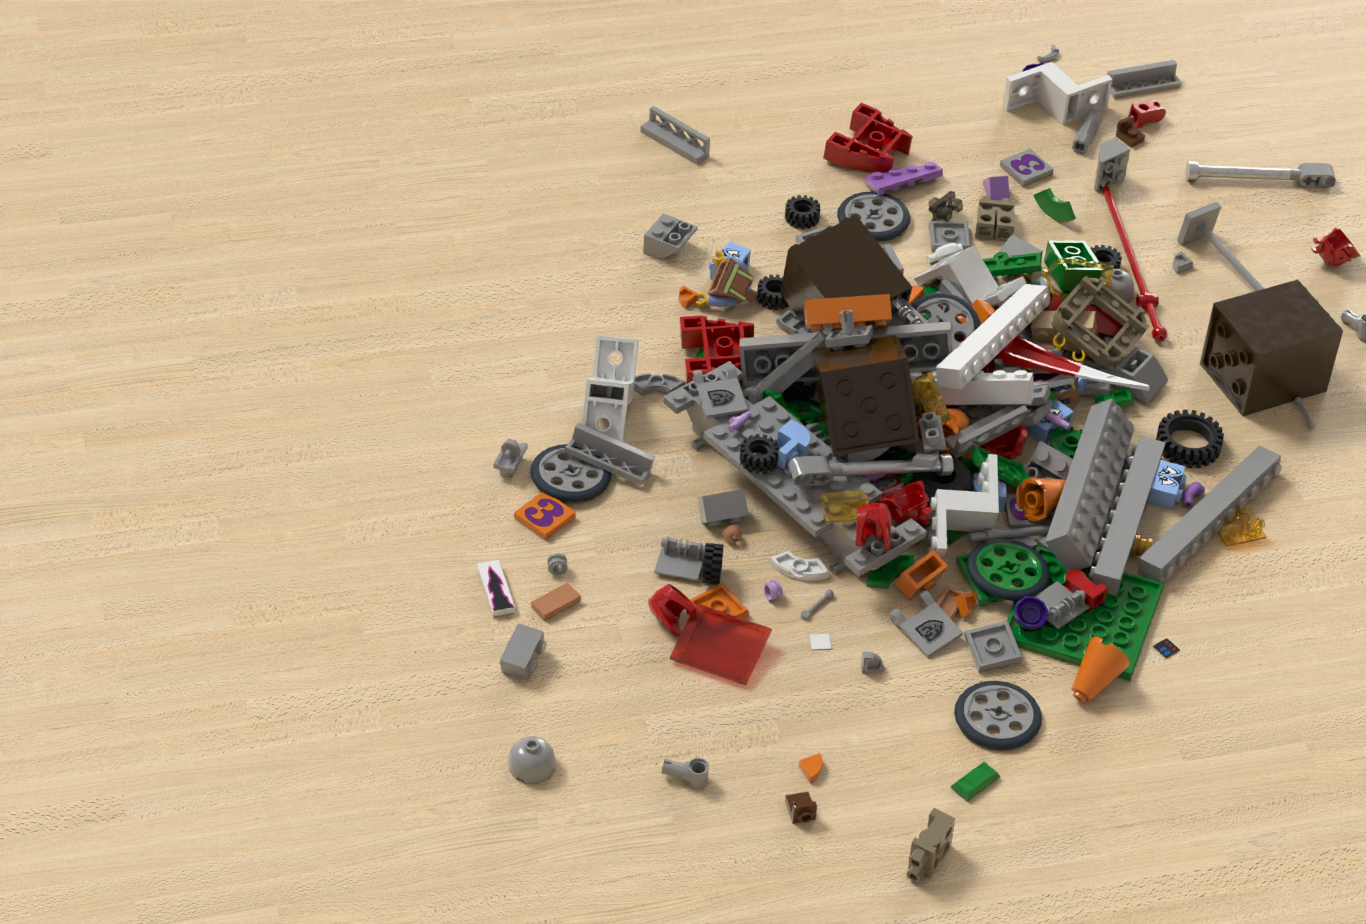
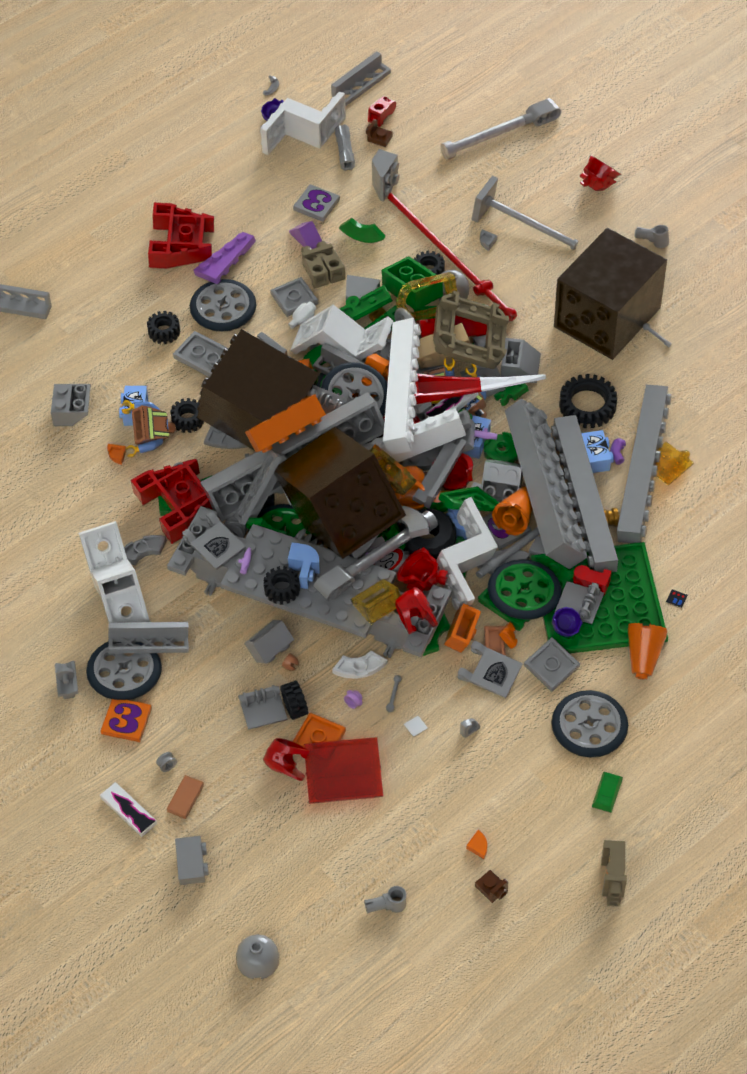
camera: 25 degrees left, 10 degrees up
(849, 333) = (300, 445): light grey plate -> none
(932, 432) = (411, 502): light grey hips -> none
(943, 207) = (276, 271): clear smoke hips -> none

